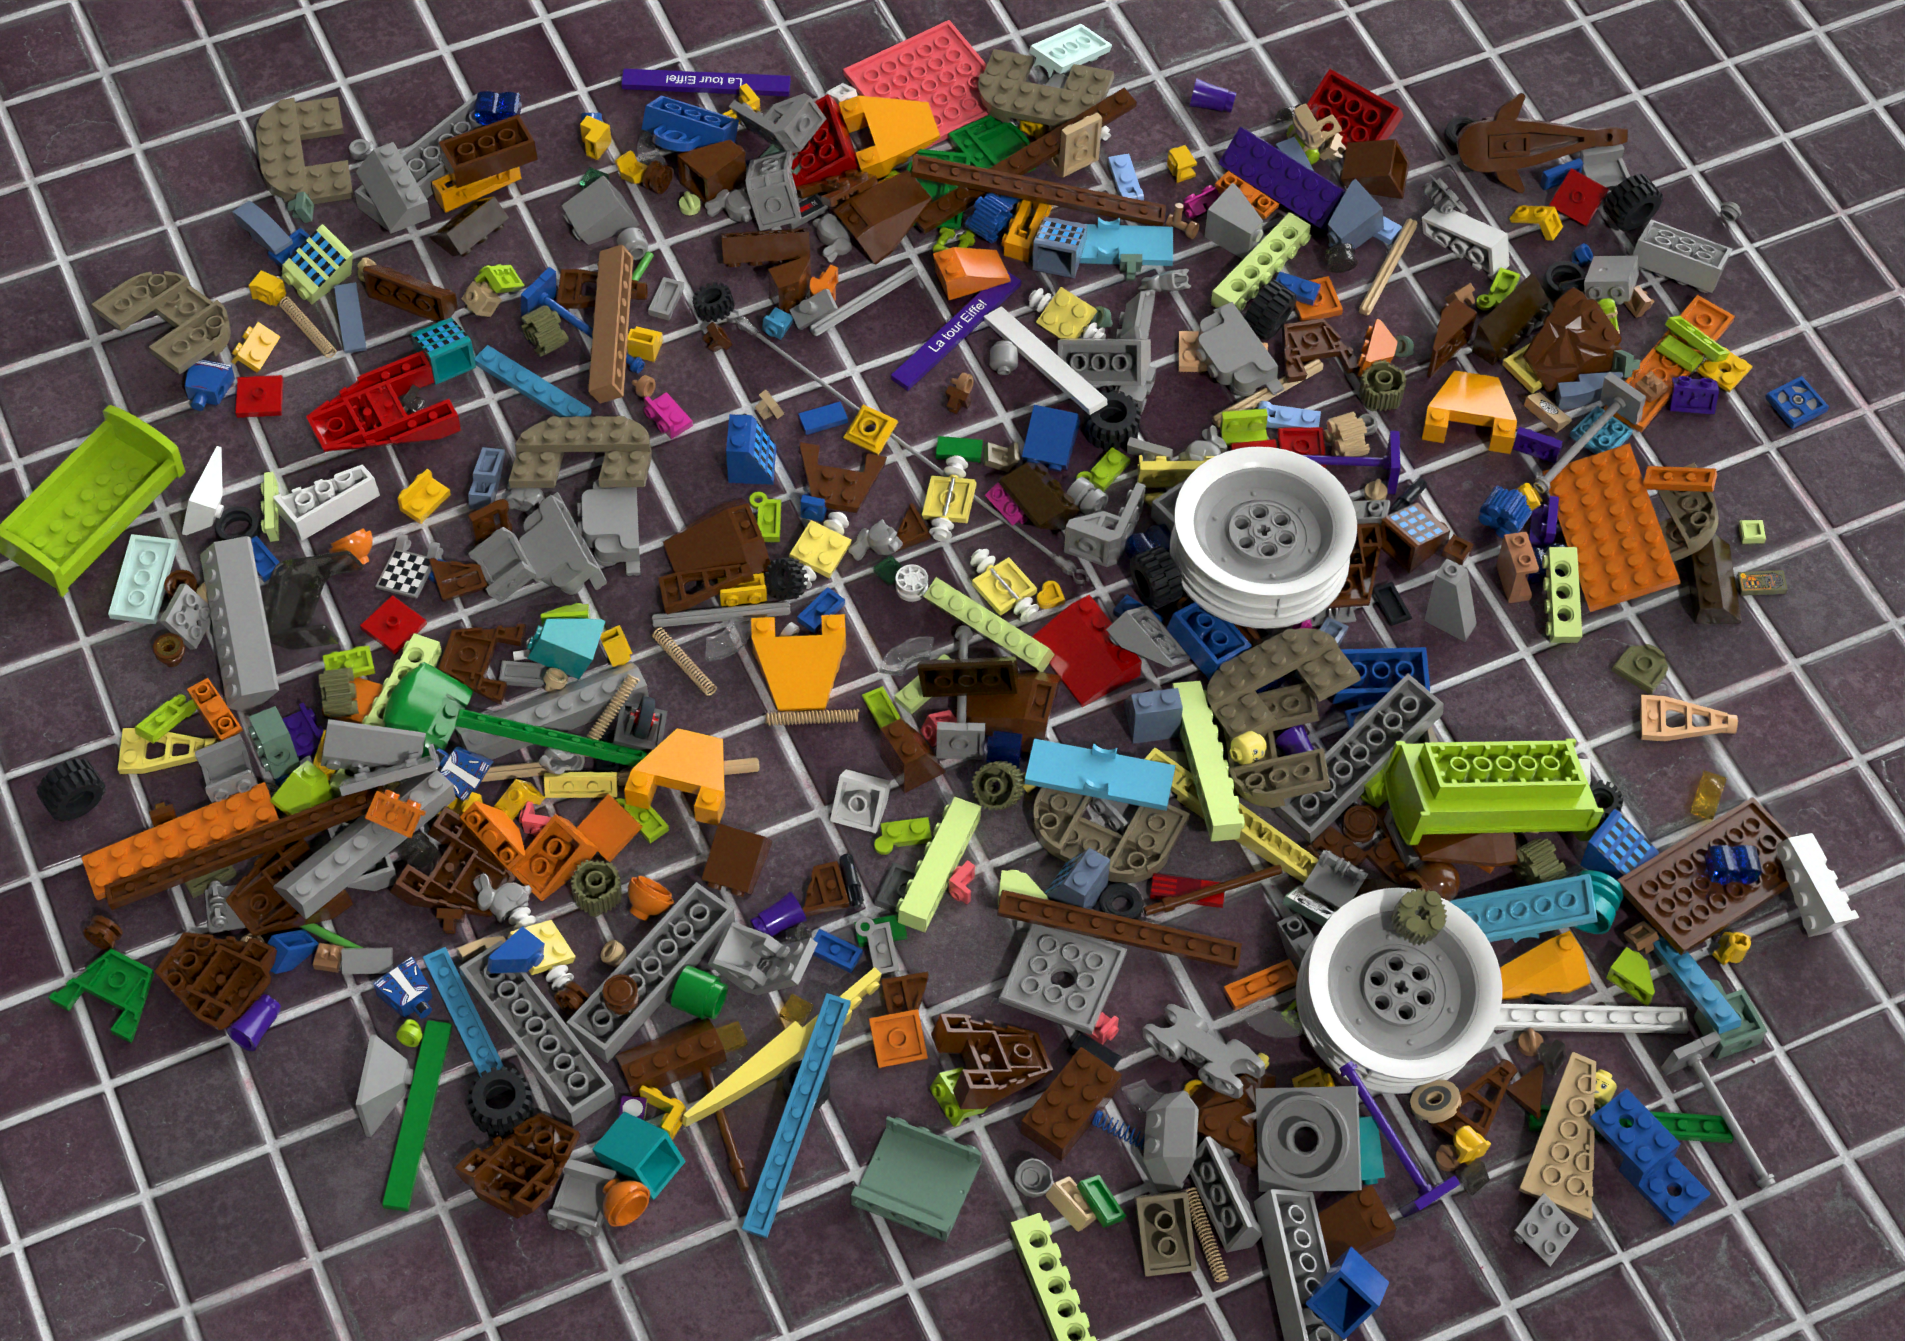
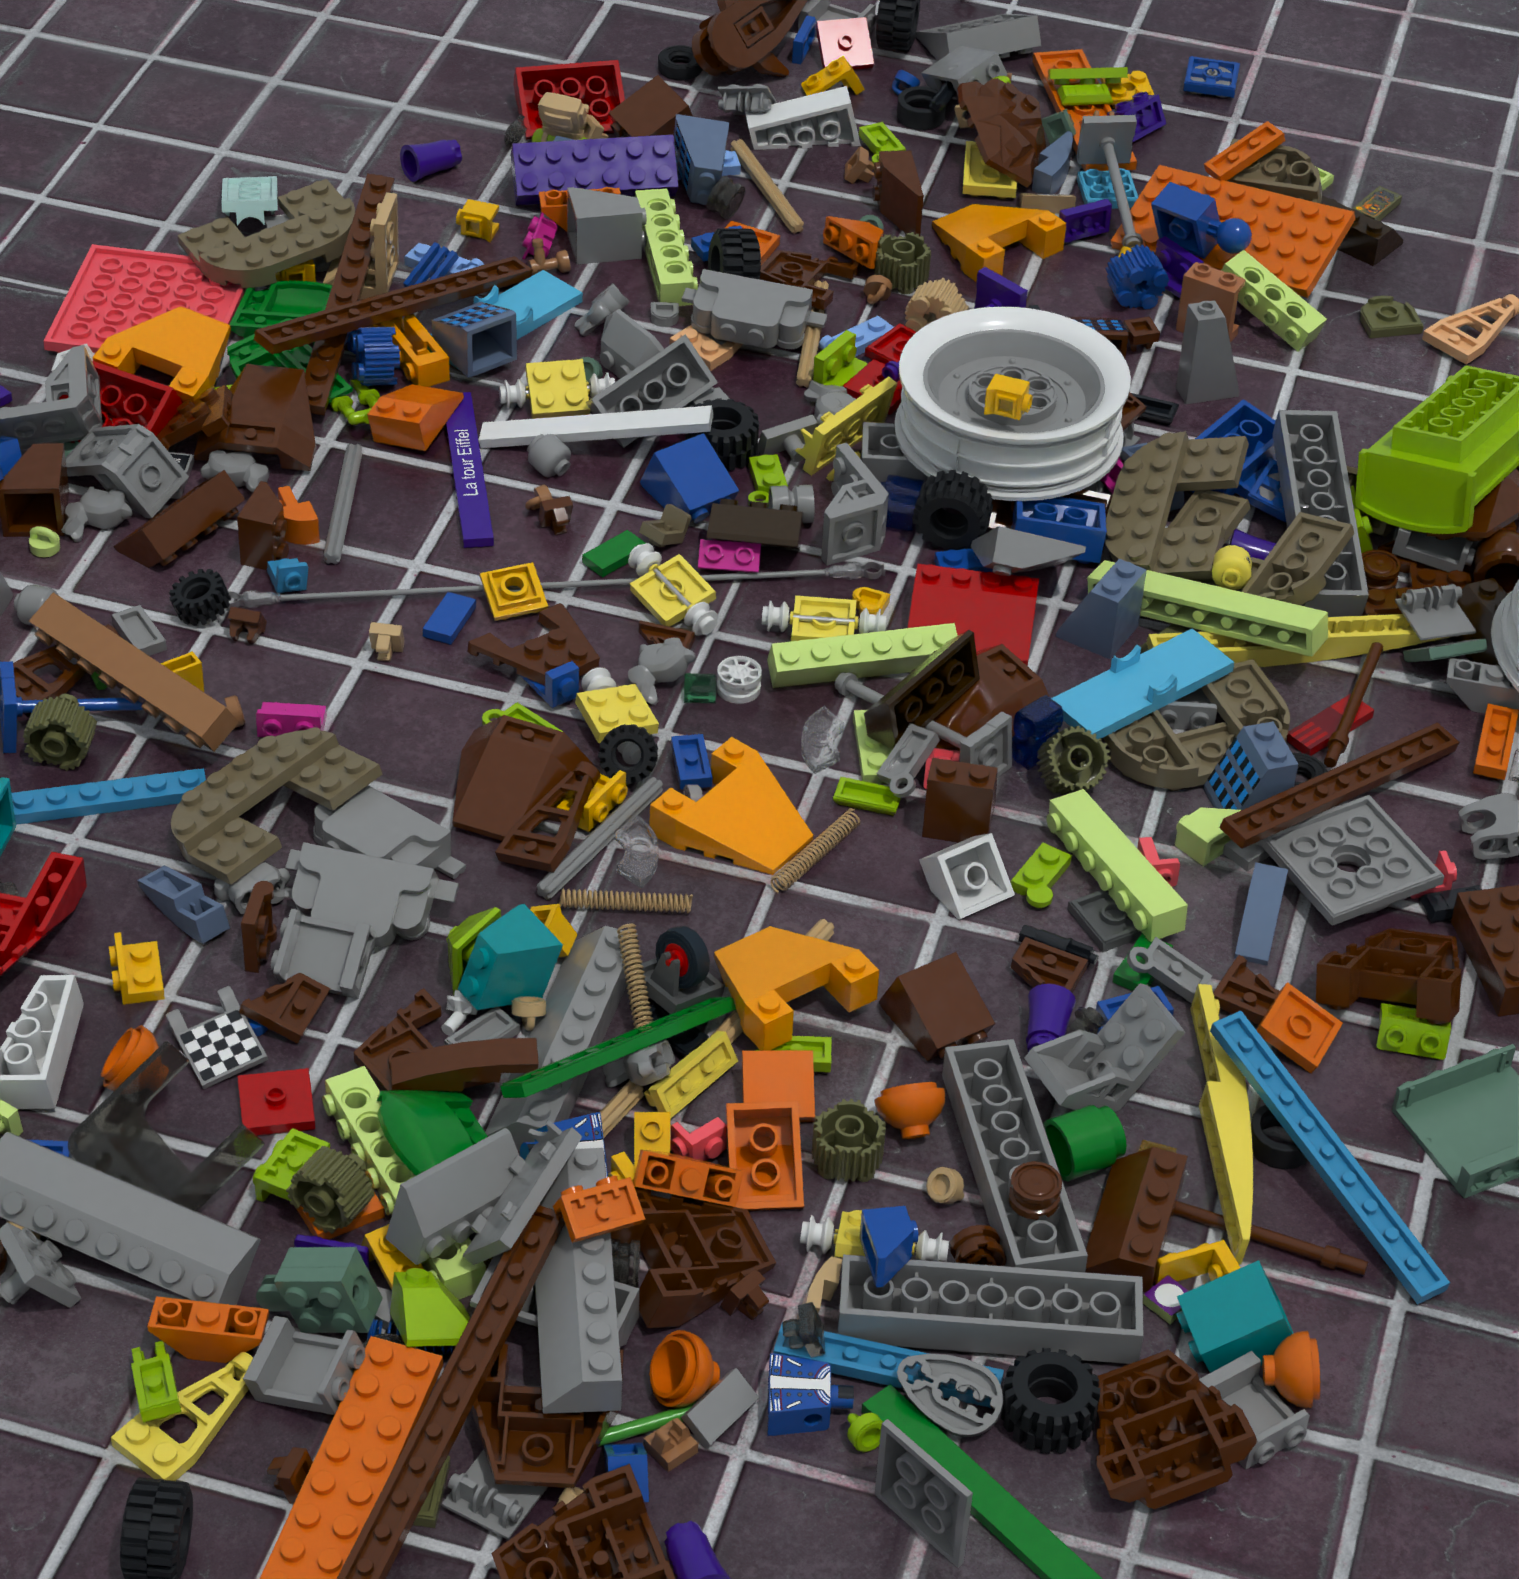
camera: 50 degrees left, 15 degrees down
(167, 655) = (59, 1316): reddish brown piece -> none
(370, 928) = (682, 1369): none -> orange piece
(440, 962) = (806, 1330): none -> clear smoke tile
(452, 1047) = (948, 1414): none -> light grey piece
(479, 682) = (471, 1061): none -> reddish brown slope
(502, 900) = (774, 1231): light grey animal -> none
(749, 452) = (429, 684): blue slope -> none
(796, 1010) = (1175, 1088): clear yellow tile -> none
(813, 309) = (314, 533): light grey tile -> none
(918, 706) = (907, 759): none -> light grey hinge
(975, 961) = (1261, 913): none -> sand blue slope
(1105, 176) = (427, 266): none -> blue tile
(1130, 264) = (552, 317): sand green tile -> none
(1202, 310) = (664, 313): none -> light grey tile
(1222, 534) = (1007, 397): none -> yellow window
(1345, 392) = (877, 288): none -> medium nougat tile
(1511, 321) = (930, 155): dark brown slope -> none
(1573, 504) = (1194, 222): none -> blue brick

